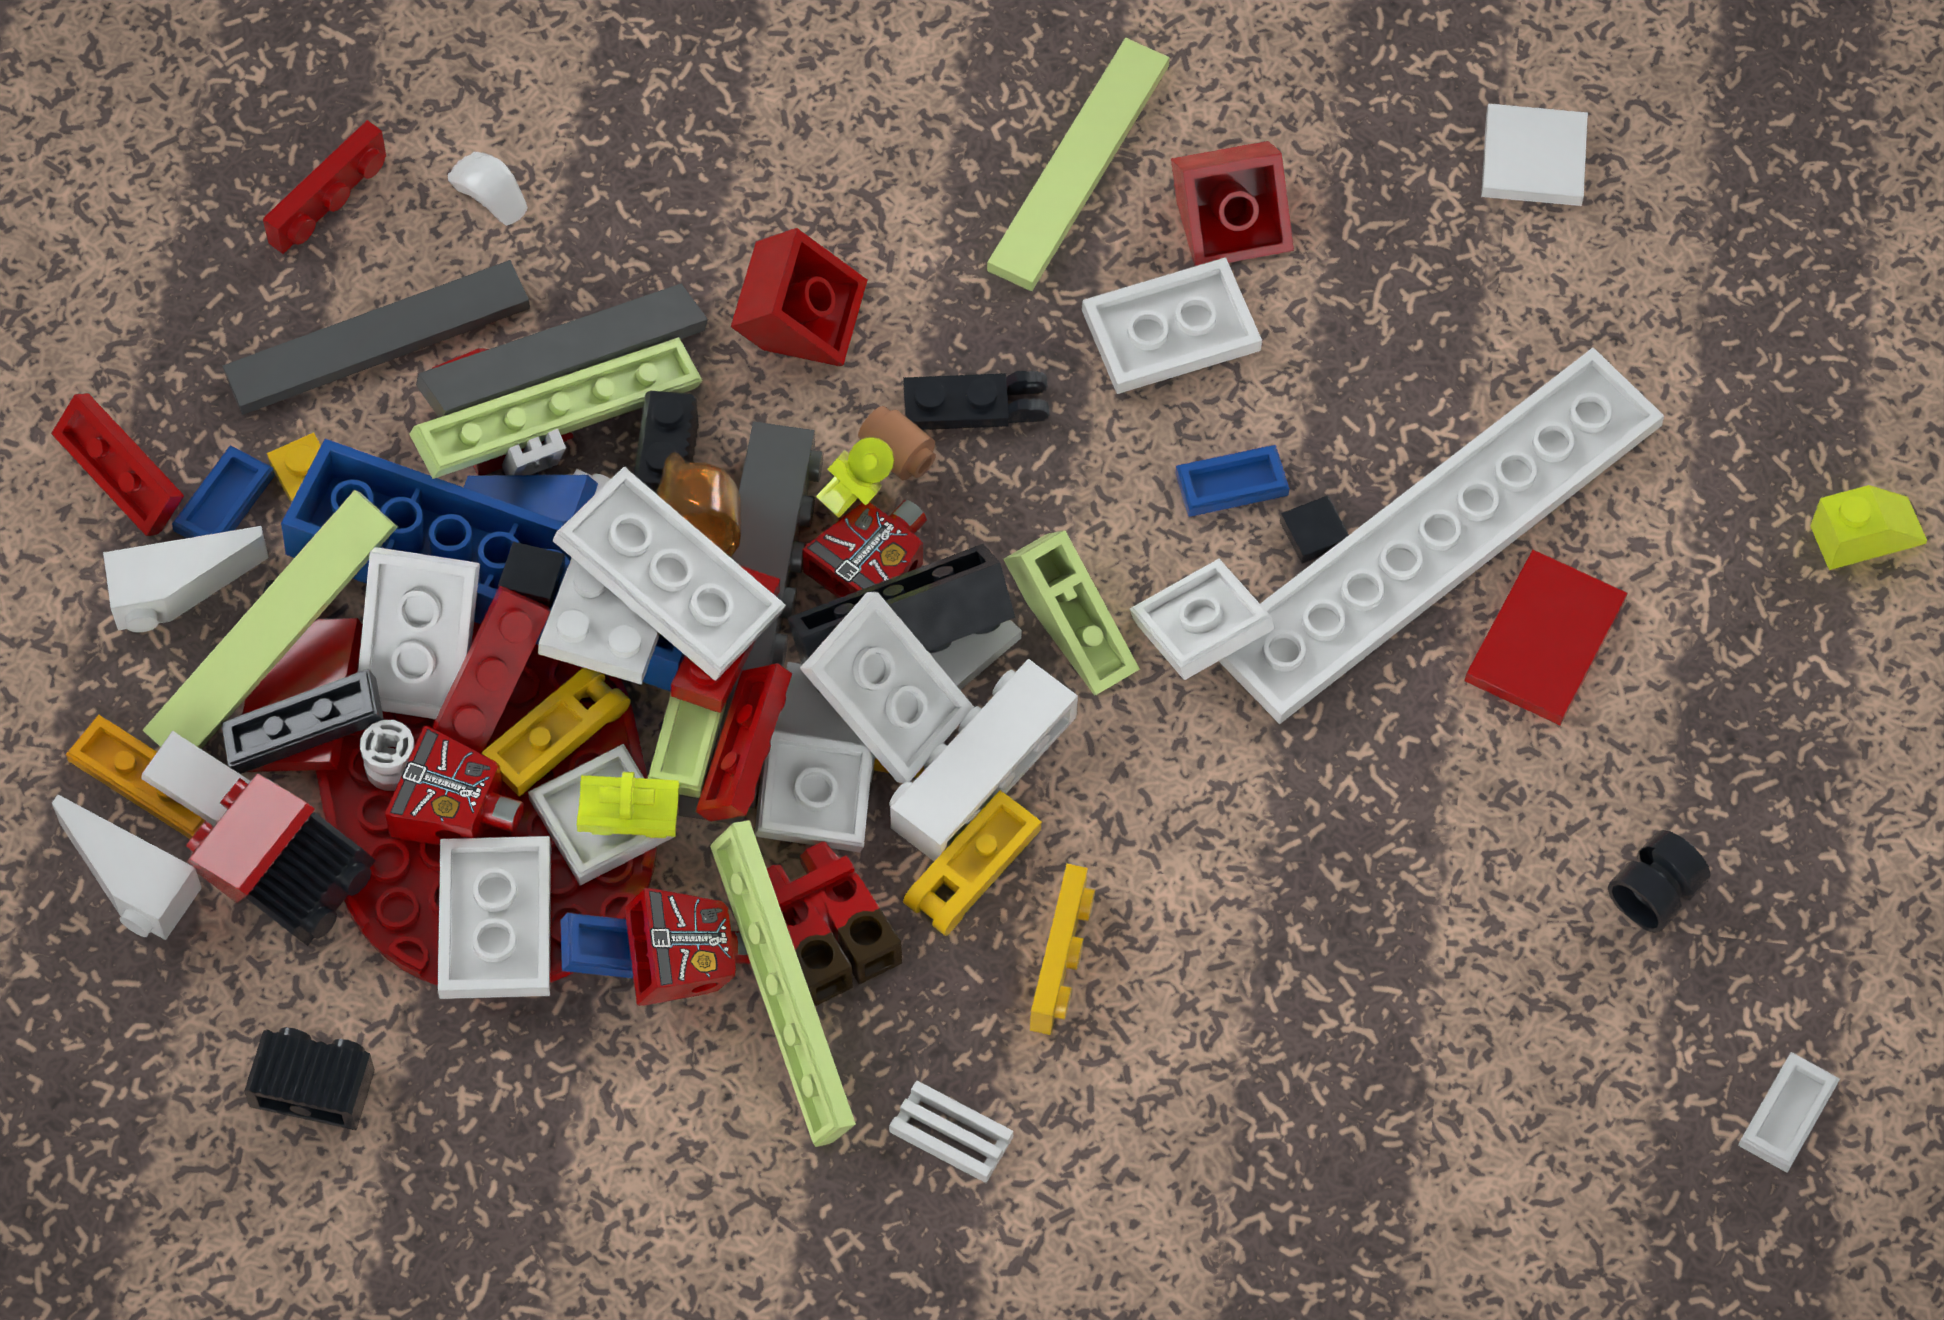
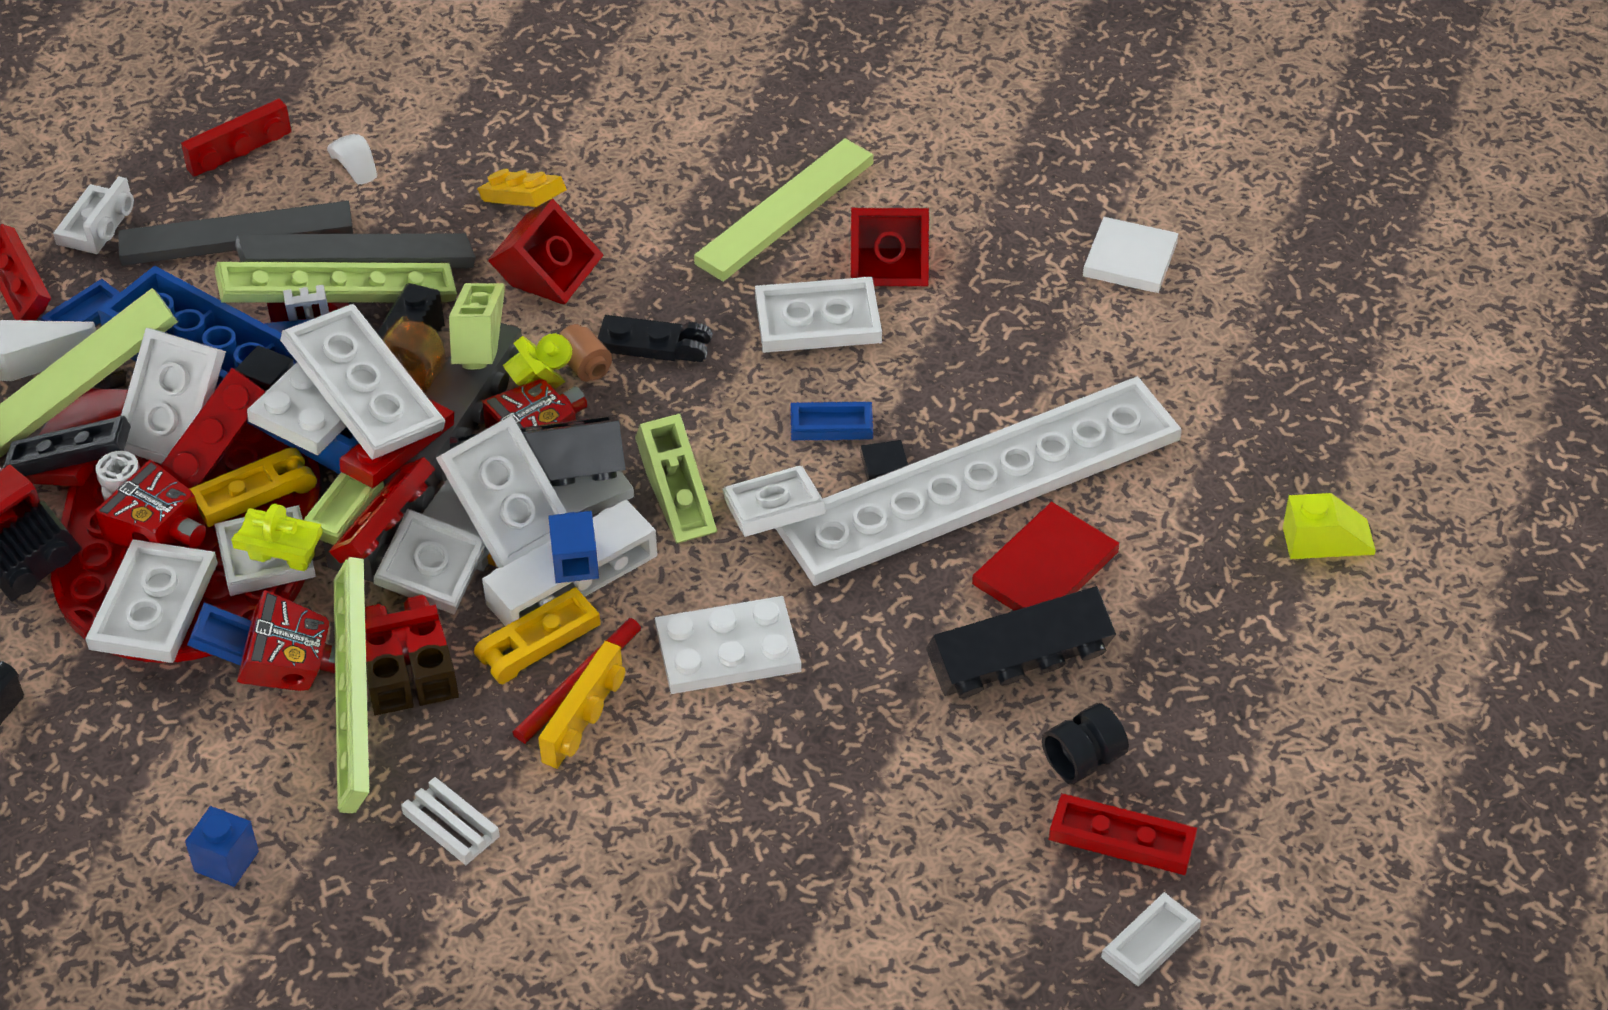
camera: 15 degrees right, 15 degrees down
(184, 350) = (95, 217): none -> white bracket
(703, 1227) = (222, 846): none -> blue brick
(740, 209) = (521, 188): none -> yellow plate
(765, 440) = (476, 324): none -> yellowish green slope
(995, 747) = (573, 546): none -> blue brick
(1037, 913) = (550, 705): none -> red bar
(1201, 827) = (727, 644): none -> white plate
(1551, 760) = (1021, 642): none -> black brick
(1728, 987) = (1123, 834): none -> red plate

